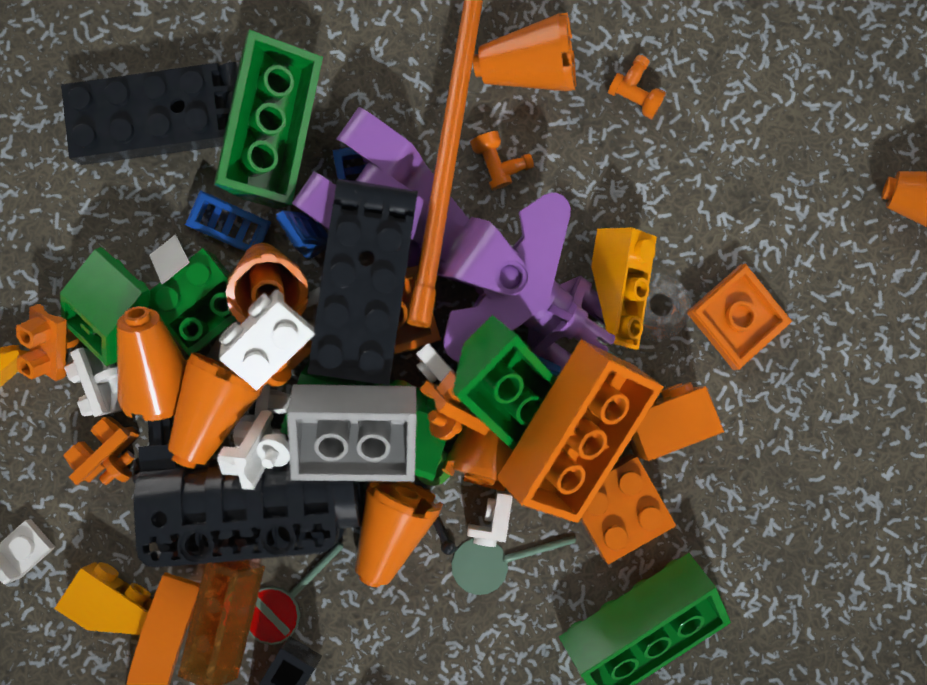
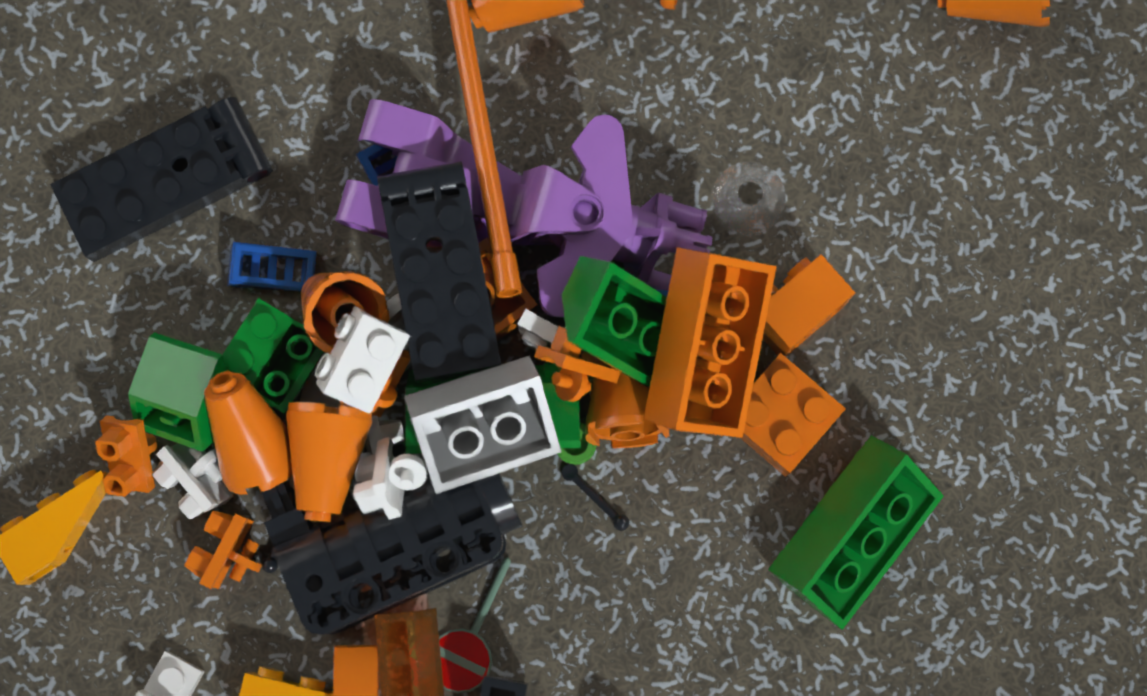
camera: 15 degrees left, 5 degrees down
(169, 259) = (225, 323): white sticker -> none
(268, 121) = (283, 147): green slope -> none
(303, 232) = (357, 248): blue slope -> none
(392, 527) = (554, 519): orange cone -> none
(484, 568) = (664, 530): sand green piece -> none
(498, 514) = (658, 466): white bracket -> none
(499, 171) = (536, 116): orange piece -> none
(622, 279) = (701, 179): light orange slope -> none
(739, 316) = (836, 178): orange plate -> none

